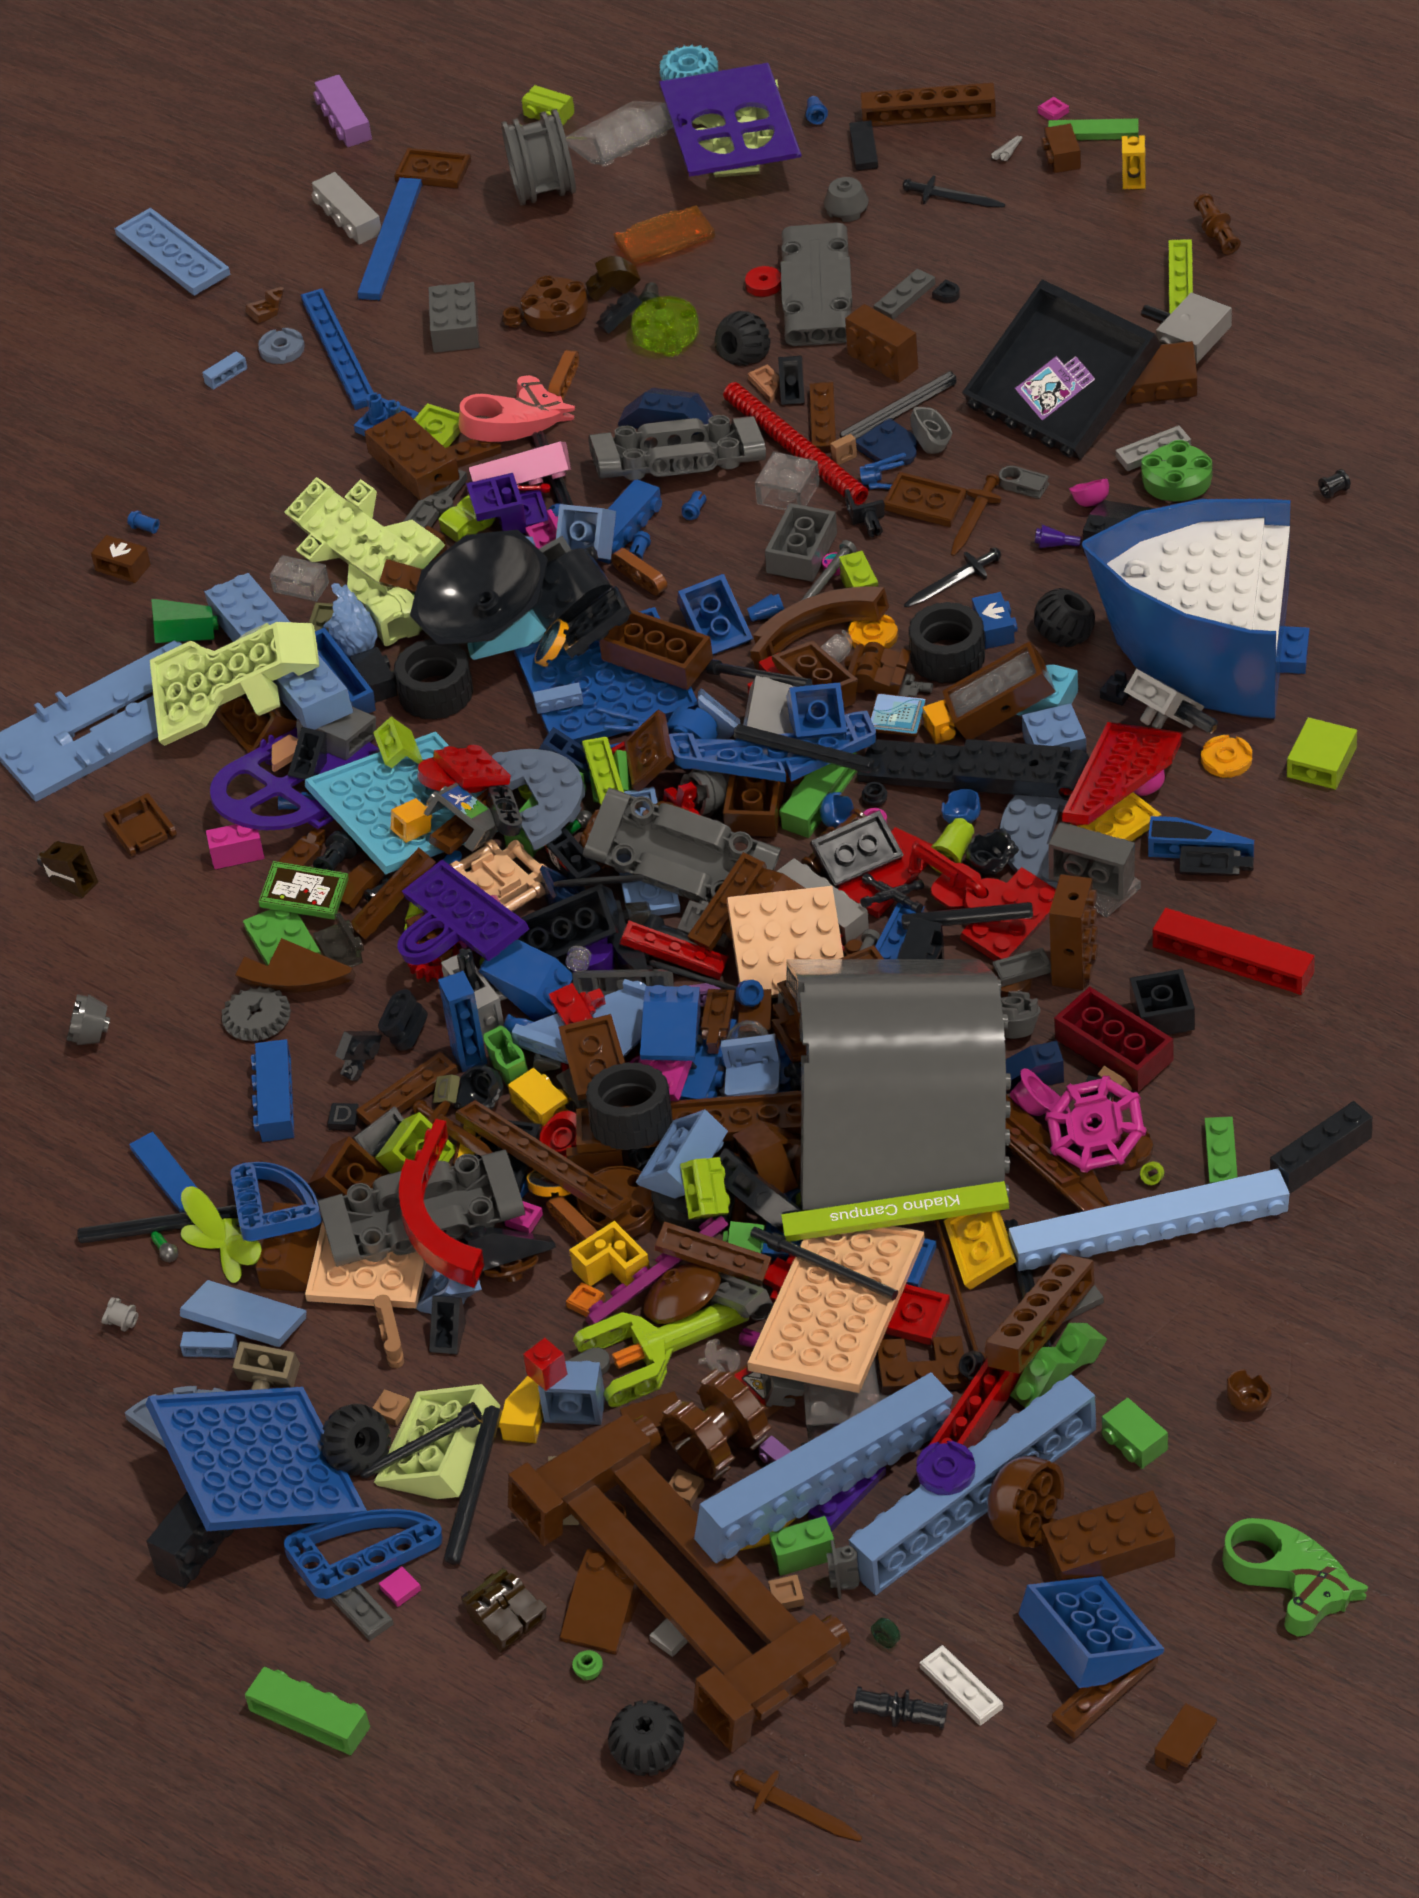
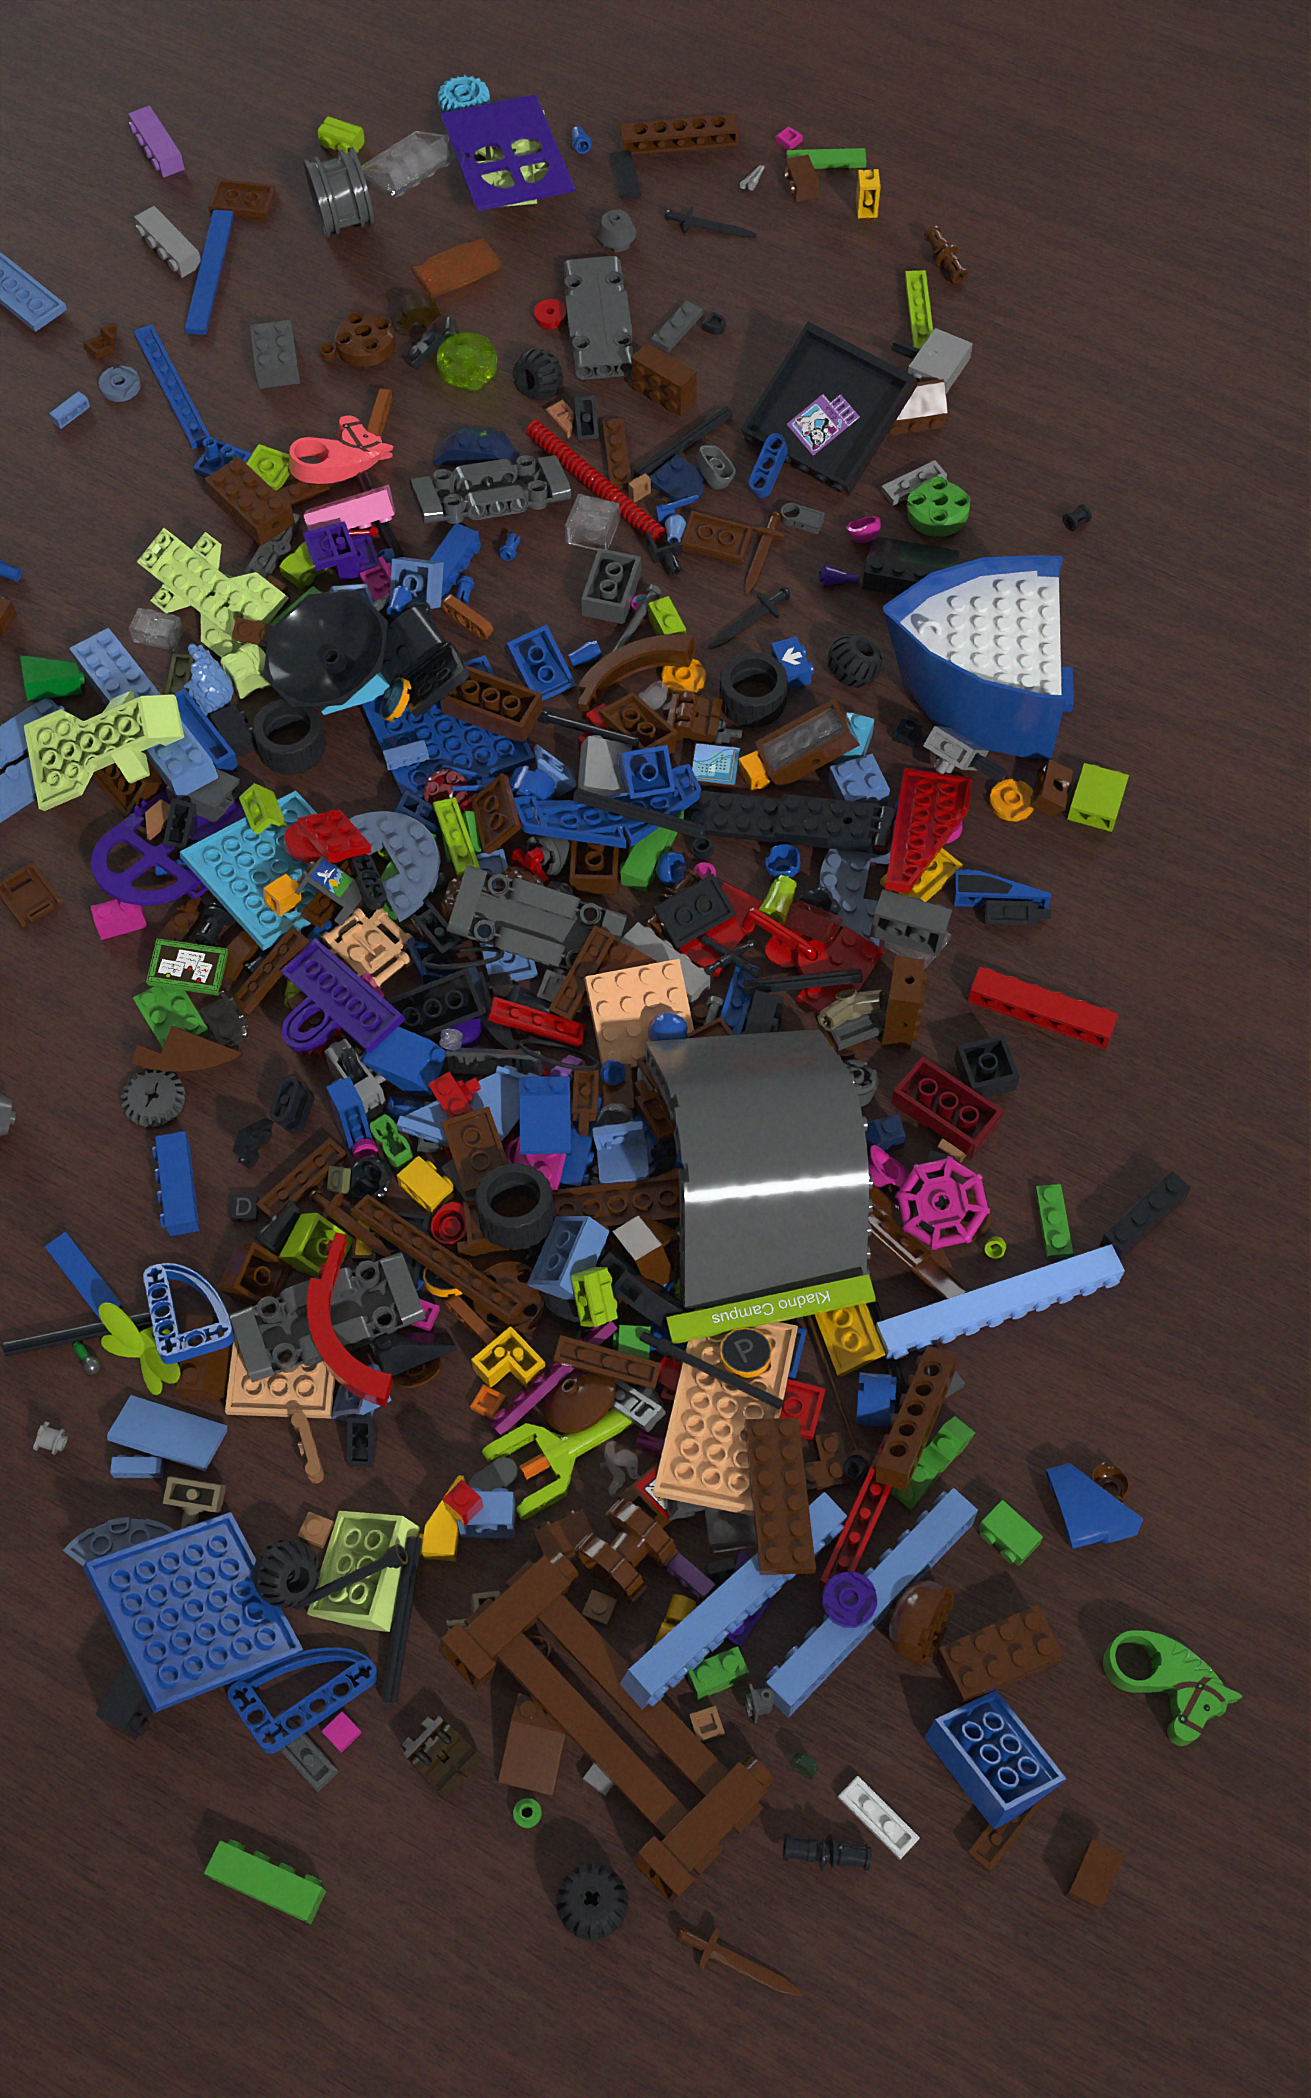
camera: 10 degrees left, 15 degrees up
(474, 1059) = (364, 1148): none -> dark pink tile
(563, 543) = (399, 600): none -> blue cone
(591, 726) = (439, 787): none -> dark red dish
(813, 947) = (667, 1027): none -> blue hair
(863, 1249) = (745, 1352): none -> black tile
(878, 487) = (675, 528): none -> medium blue cone
(881, 1370) = (779, 1496): none -> reddish brown plate
(984, 858) = (813, 922): none -> clear red brick
(988, 417) = (767, 456): none -> blue beam
(998, 1299) = (874, 1399): none -> blue brick
(1015, 941) = (850, 1006): none -> dark tan piece
(1224, 1412) = (1090, 1510): none -> blue panel
(1270, 742) = (1051, 788): none -> reddish brown brick

